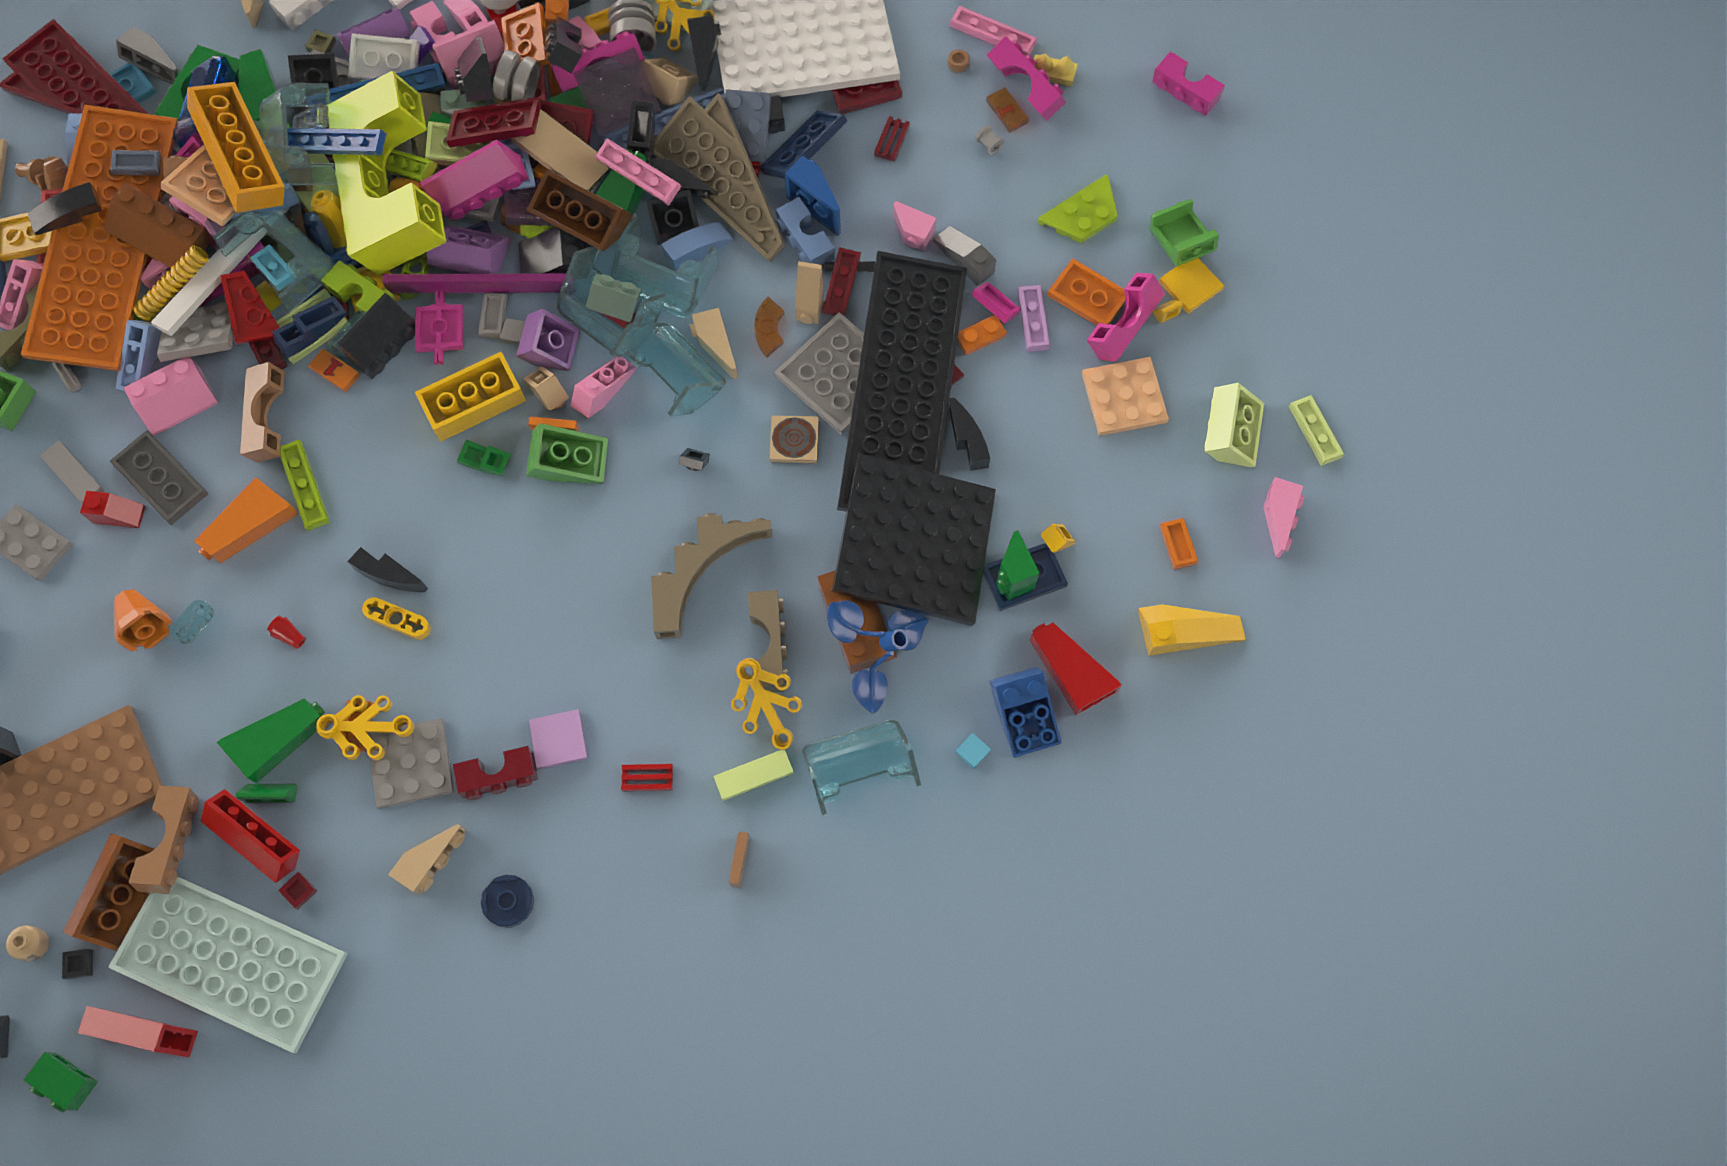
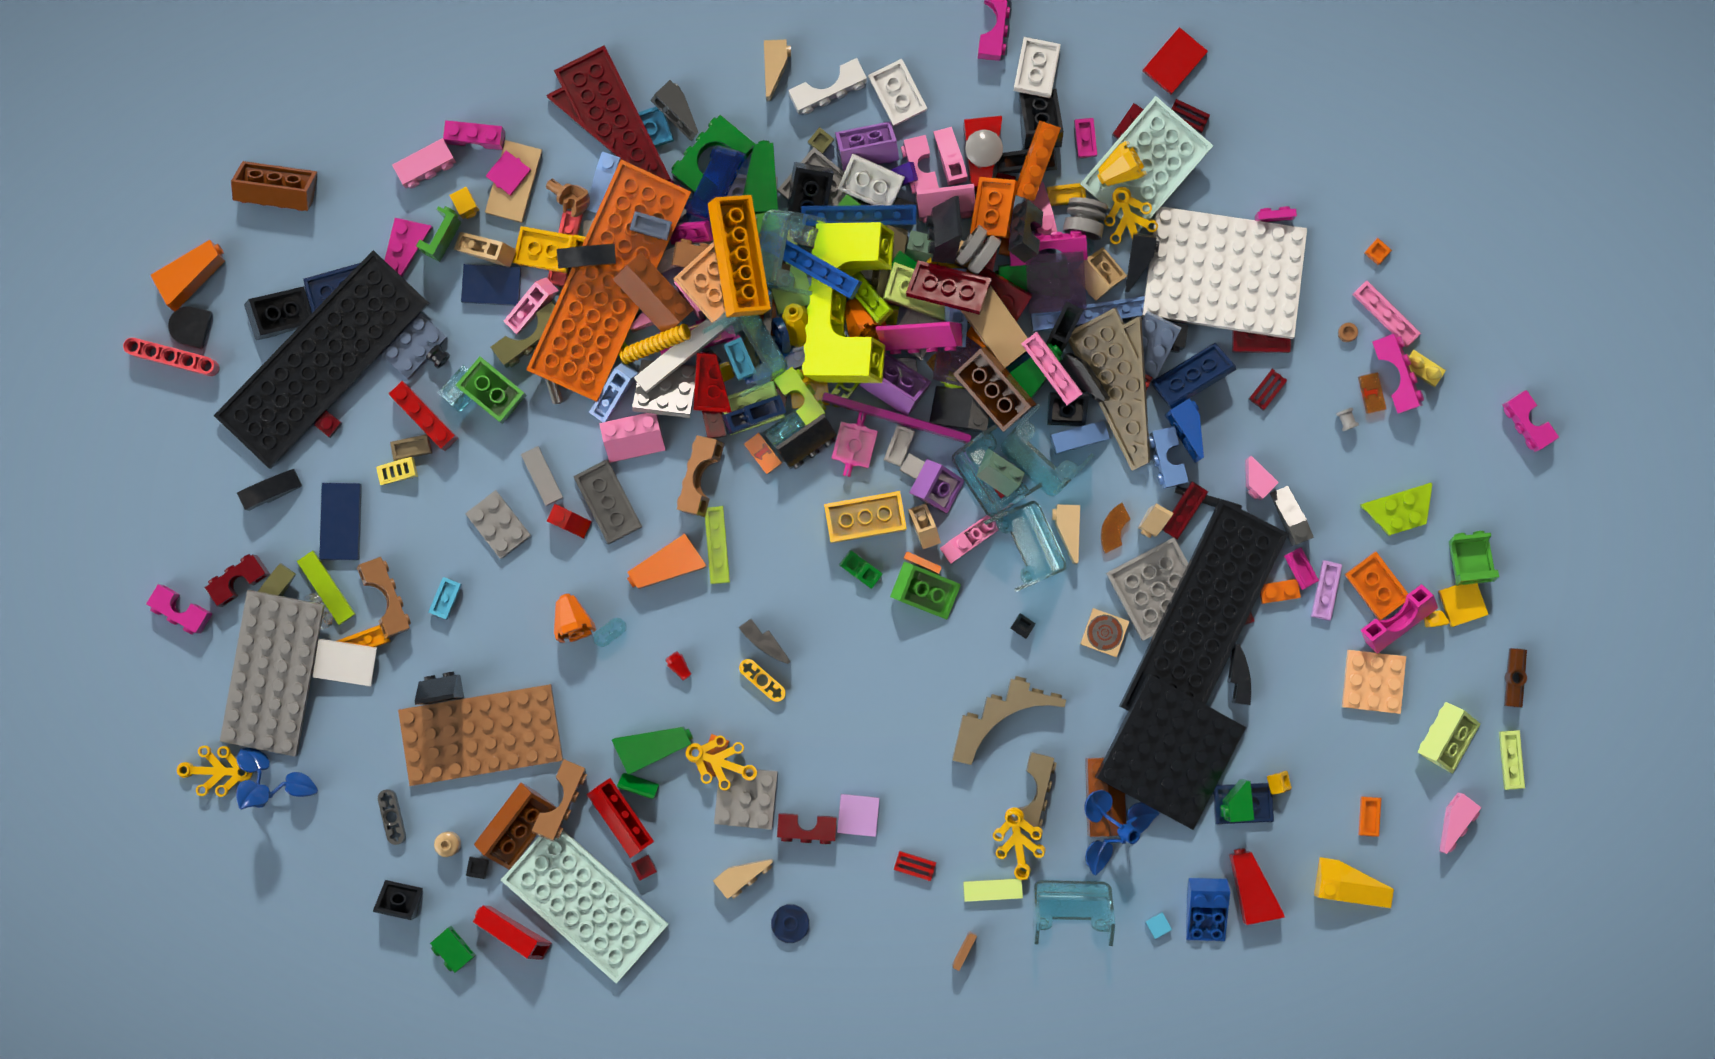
camera: 15 degrees right, 15 degrees up
(1285, 351) = (1516, 664): none -> reddish brown piece

